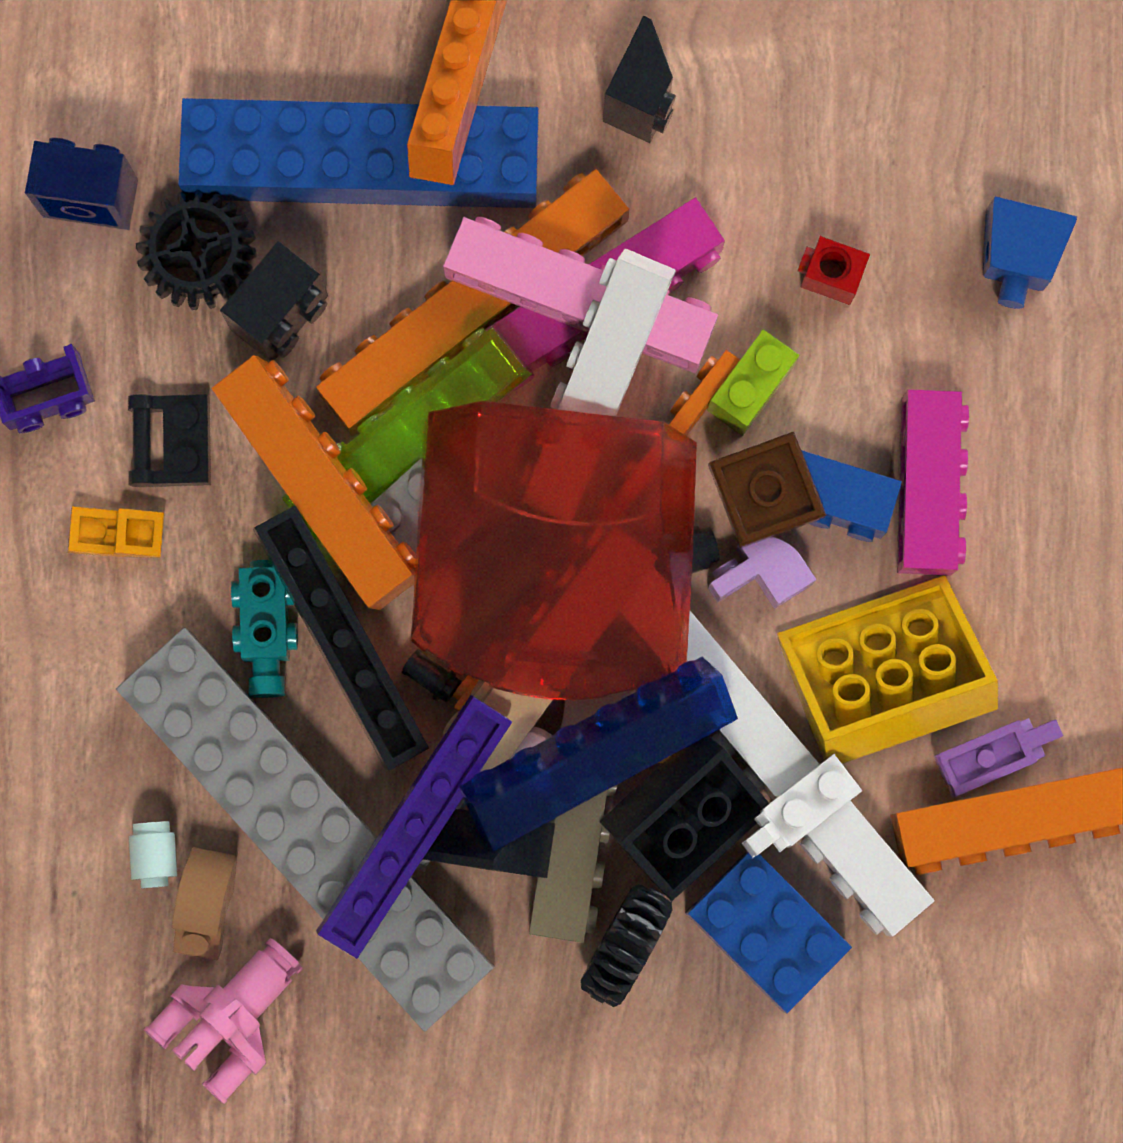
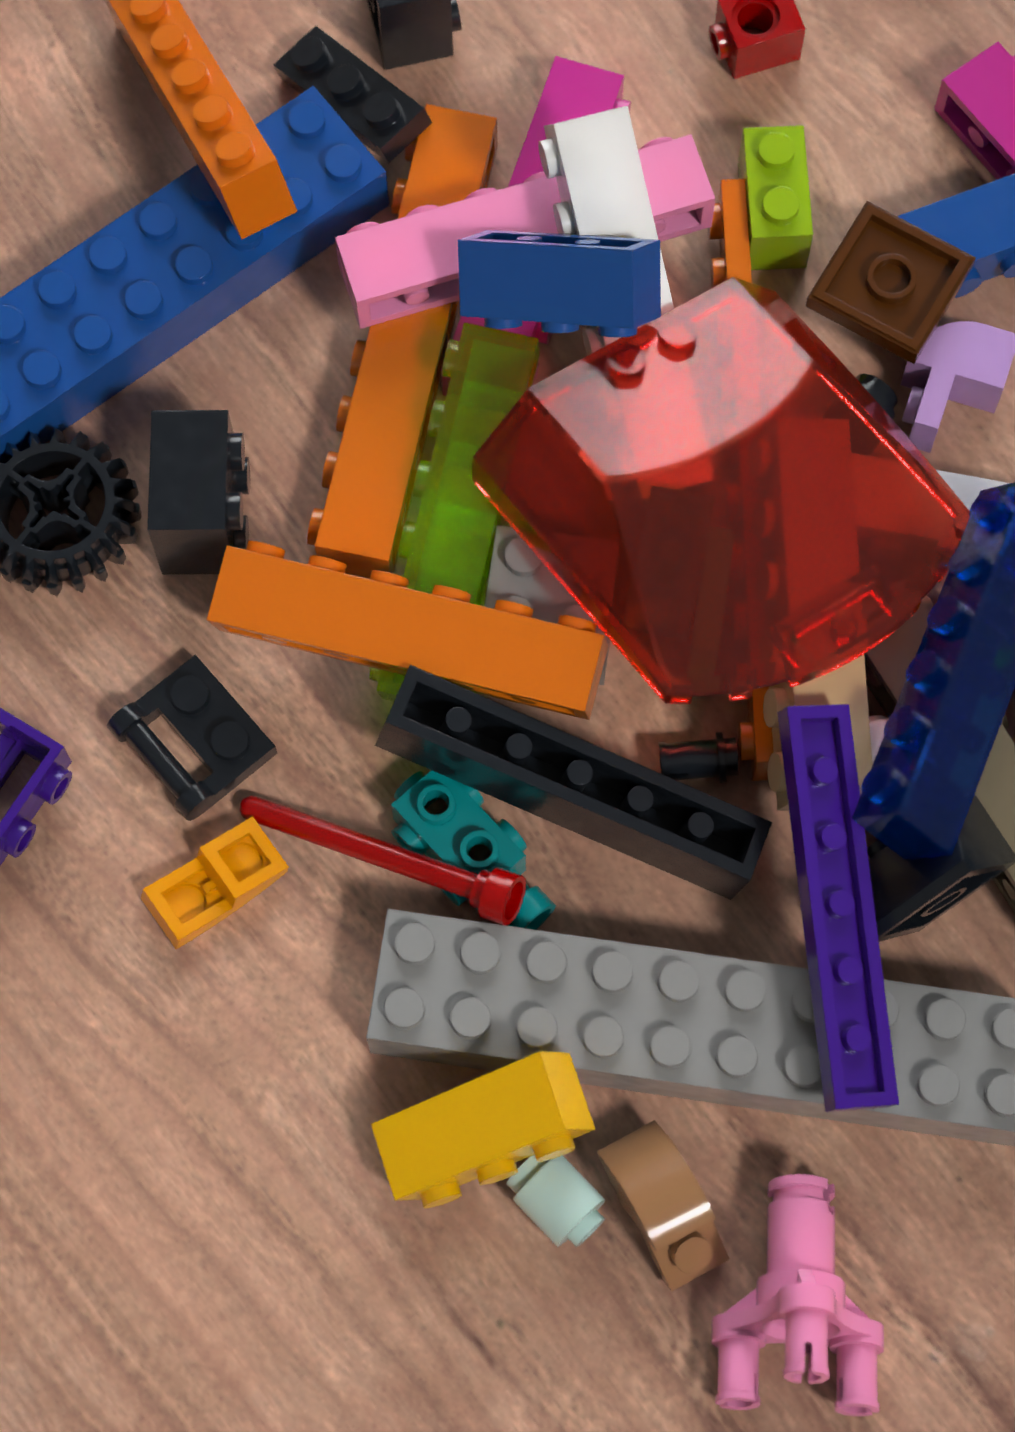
camera: 35 degrees left, 10 degrees down
(136, 789) = (483, 1129): none -> yellow brick
(247, 665) = (494, 893): none -> red piece
(556, 349) = (560, 281): none -> blue brick
(562, 127) = (363, 98): none -> black plate

